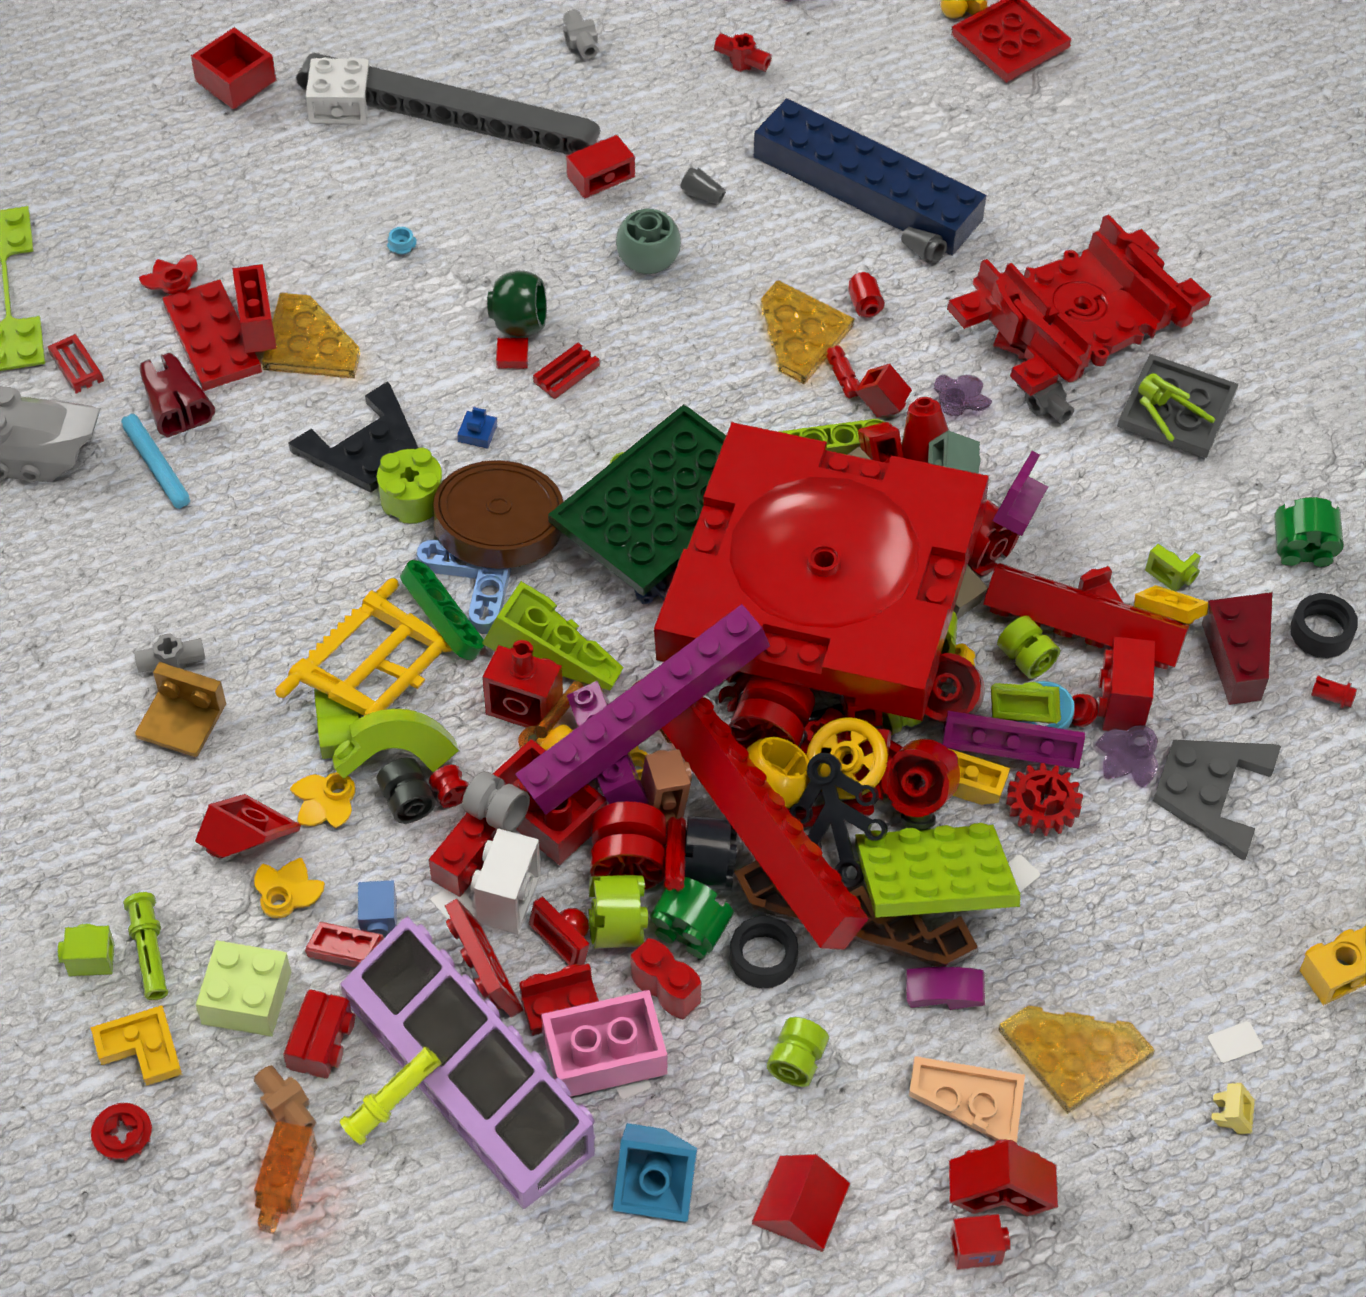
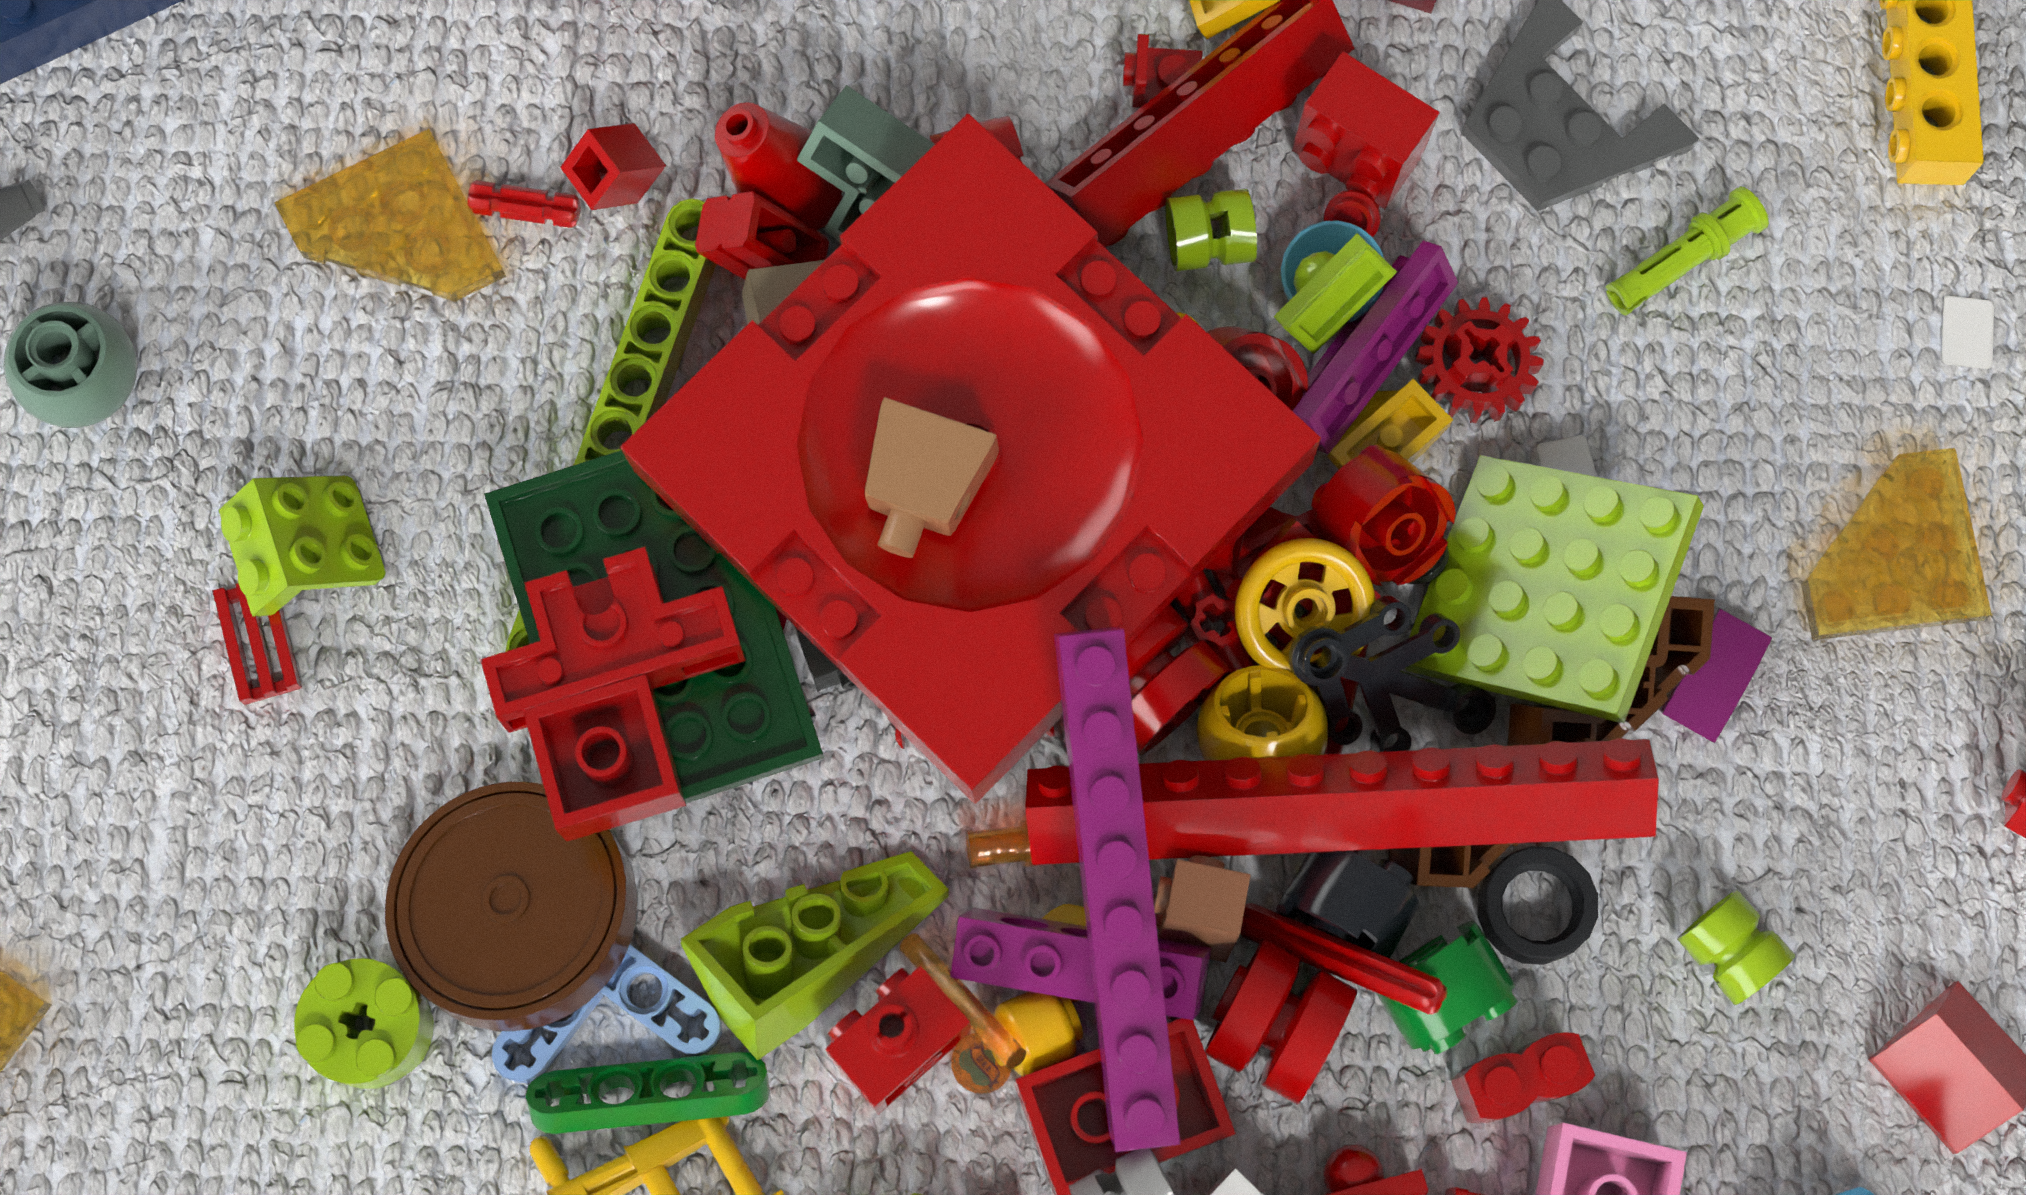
camera: 65 degrees left, 20 degrees up
(360, 454) = (235, 1048): black wing -> none
(477, 428) = (295, 849): blue tile -> none
(512, 353) = (165, 710): red tile -> none
(518, 304) = (82, 652): dark green wheel -> none
(583, 493) = (604, 758): none -> red brick
(616, 911) = (1383, 1096): lime brick -> none
(623, 359) = (299, 538): none -> lime bracket
(638, 471) = (609, 635): none -> red piece
(794, 537) = (924, 473): none -> medium nougat torso
(865, 294) = (393, 84): red brick -> none
(960, 394) = (672, 55): clear purple plate -> none
(970, 1094) = (1902, 735): light nougat wing -> none
(1021, 499) = (959, 83): magenta fence -> none
(1126, 757) = (1455, 206): clear purple plate -> none
(1192, 880) = (1707, 238): none -> lime pin

